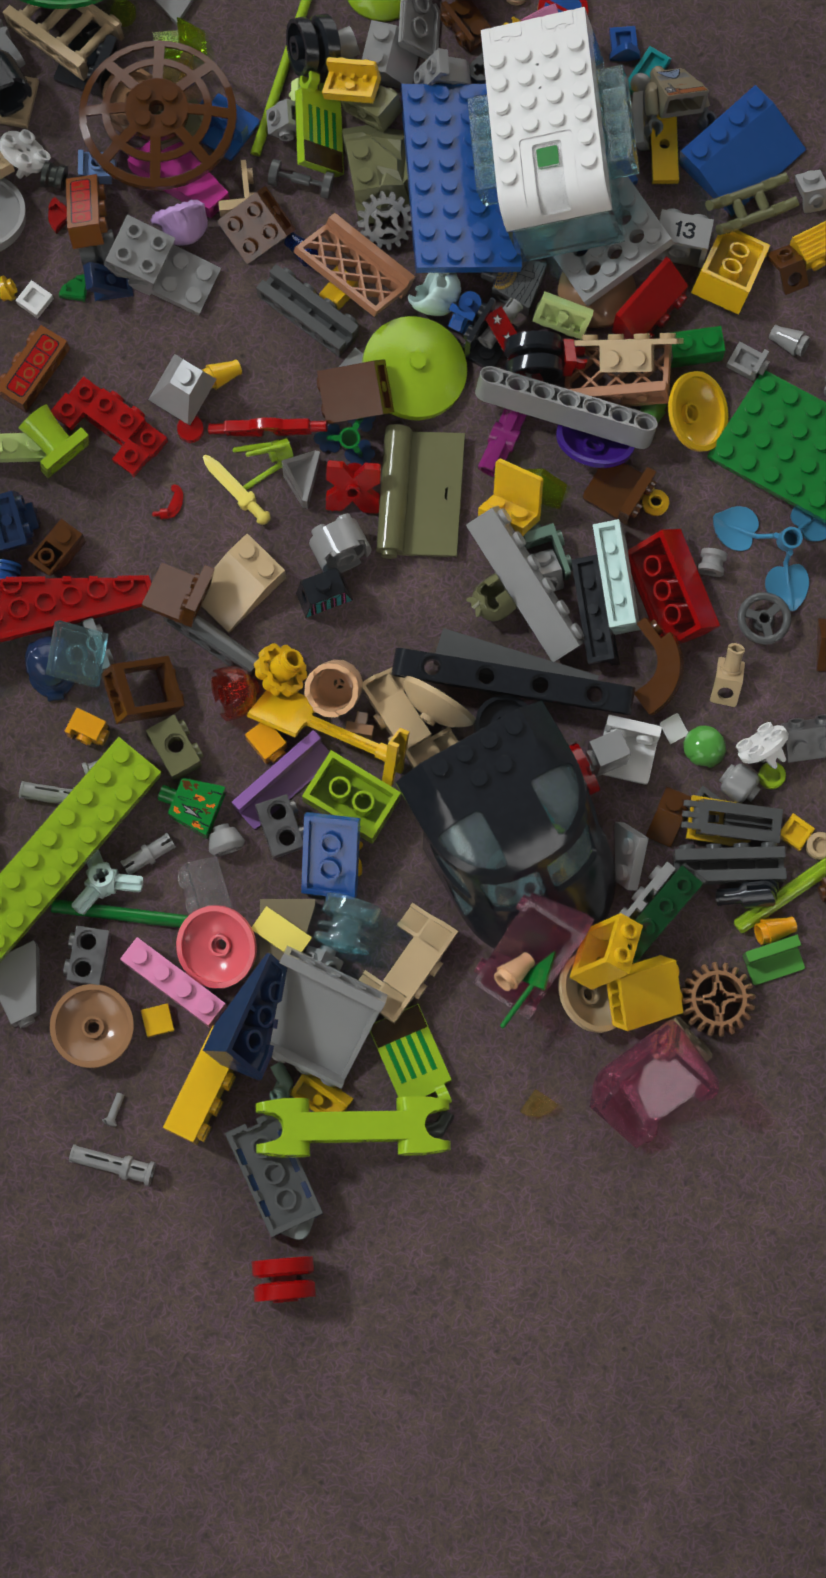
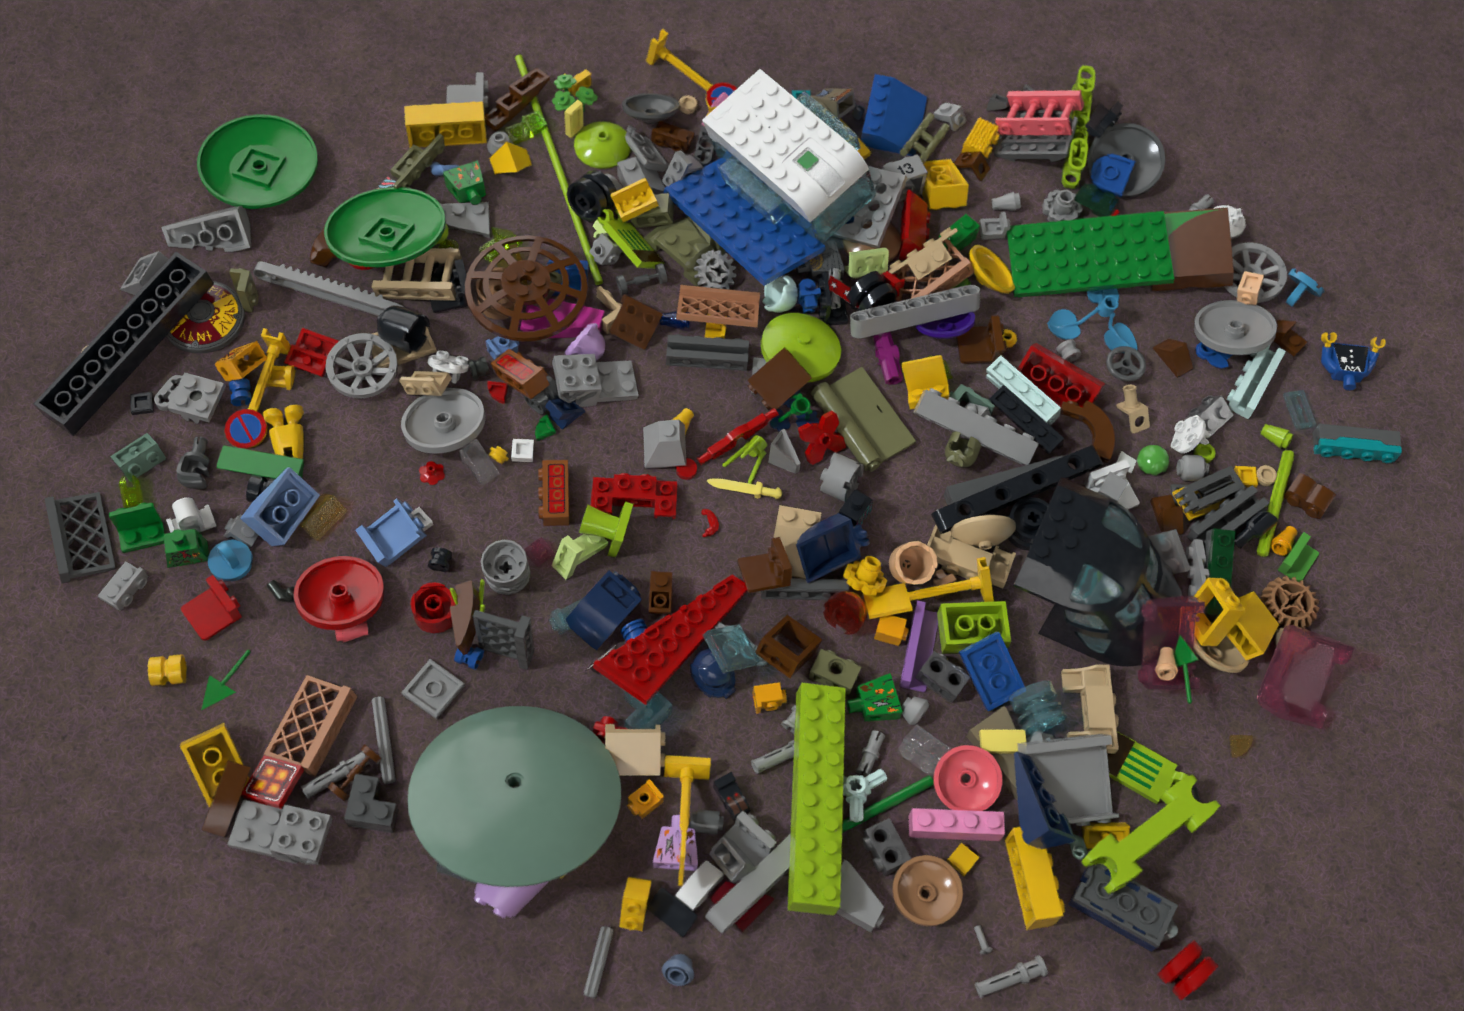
camera: 40 degrees left, 15 degrees down
(260, 611) = (830, 546): none -> dark blue piece

